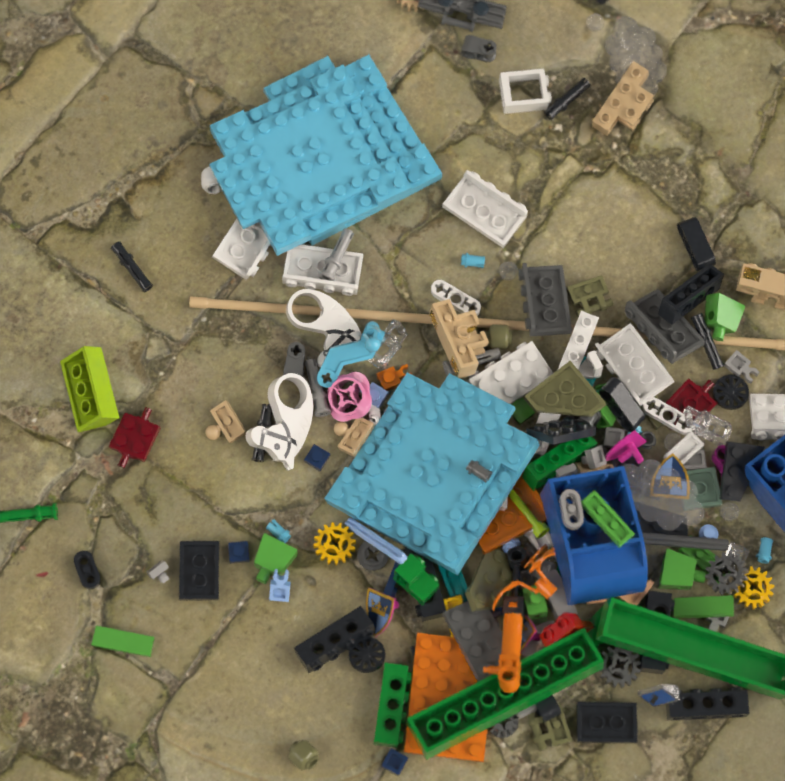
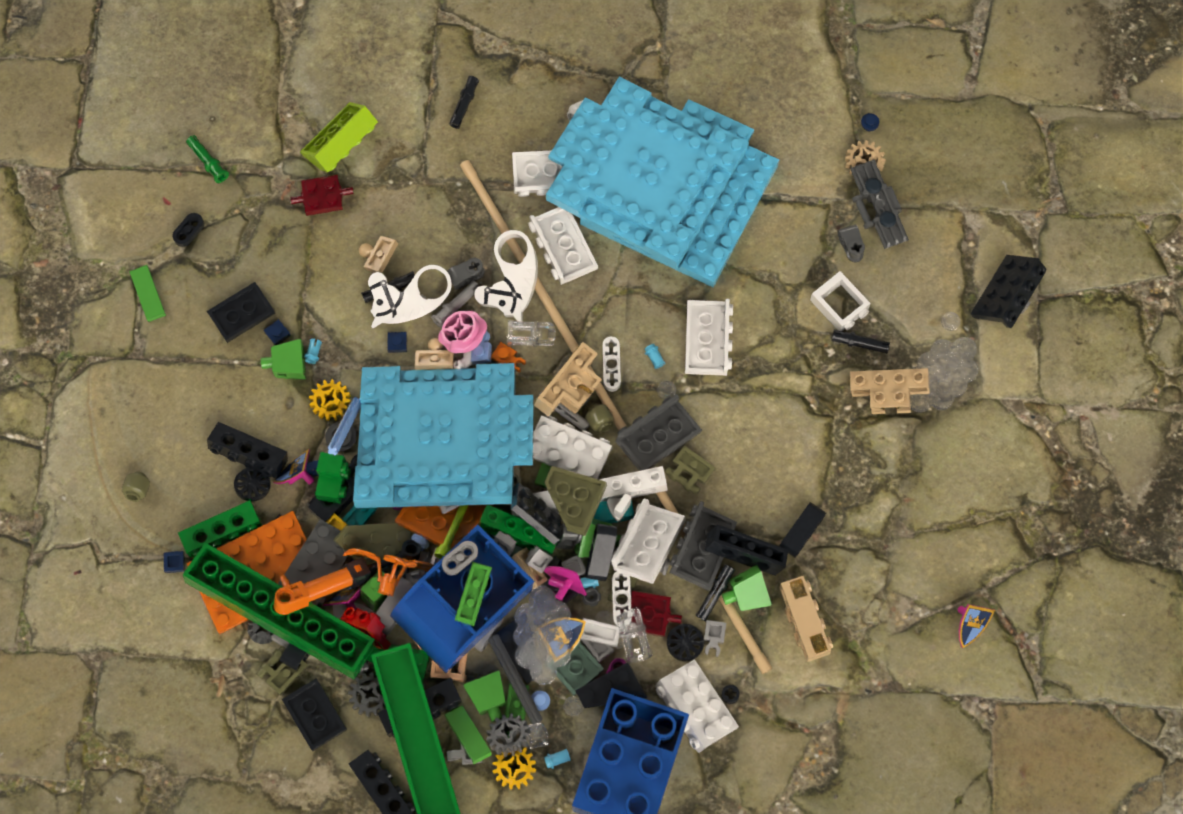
camera: 65 degrees right, 0 degrees up
(158, 571) = (220, 283): light grey tile -> none
(280, 587) = (263, 380): light blue plate -> none
(333, 262) = (571, 246): light grey pin -> none
(350, 353) = (499, 308): medium azure piece -> none
(478, 470) = (451, 465): dark grey pin -> none
(660, 694) = (363, 743): slope -> none

